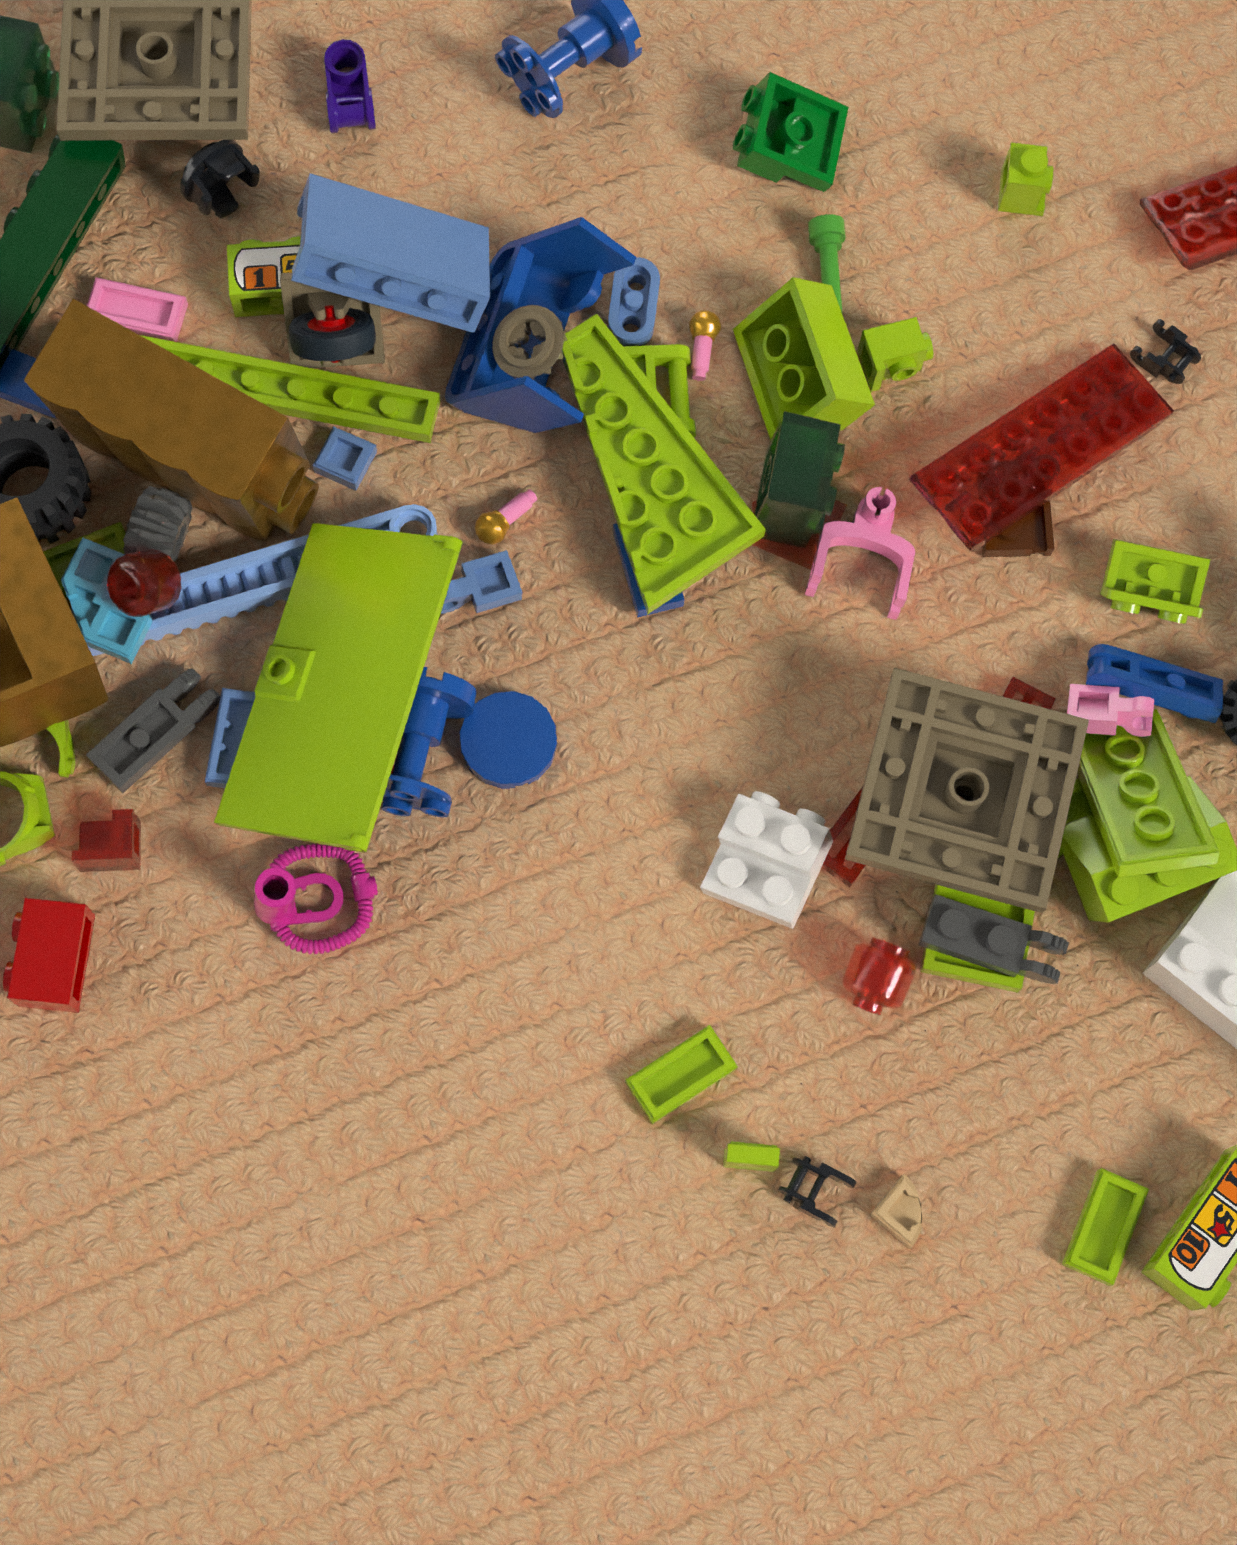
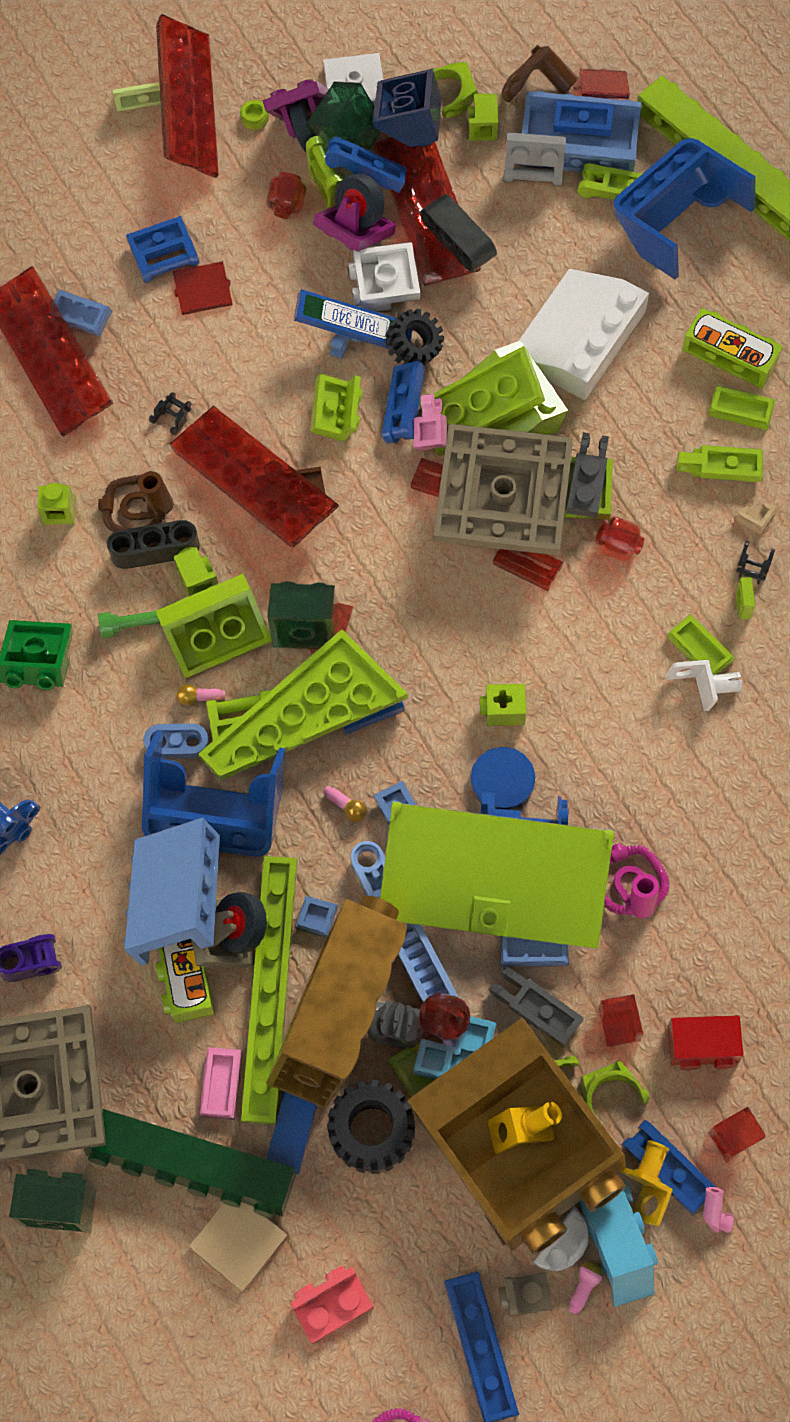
camera: 90 degrees left, 5 degrees down
(209, 187) = (112, 1042): black piece -> none
(515, 331) = (239, 804): dark tan gear -> none
(611, 1075) = (708, 684): none -> white bracket
(617, 774) = (514, 700): none -> lime brick
(767, 858) = (557, 609): white plate -> none
(869, 533) = (313, 571): bright pink piece -> none
(949, 283) = (138, 538): none -> pearl dark grey beam
(999, 1172) = (722, 463): none -> lime hinge
(1016, 309) = (152, 491): none -> reddish brown piece

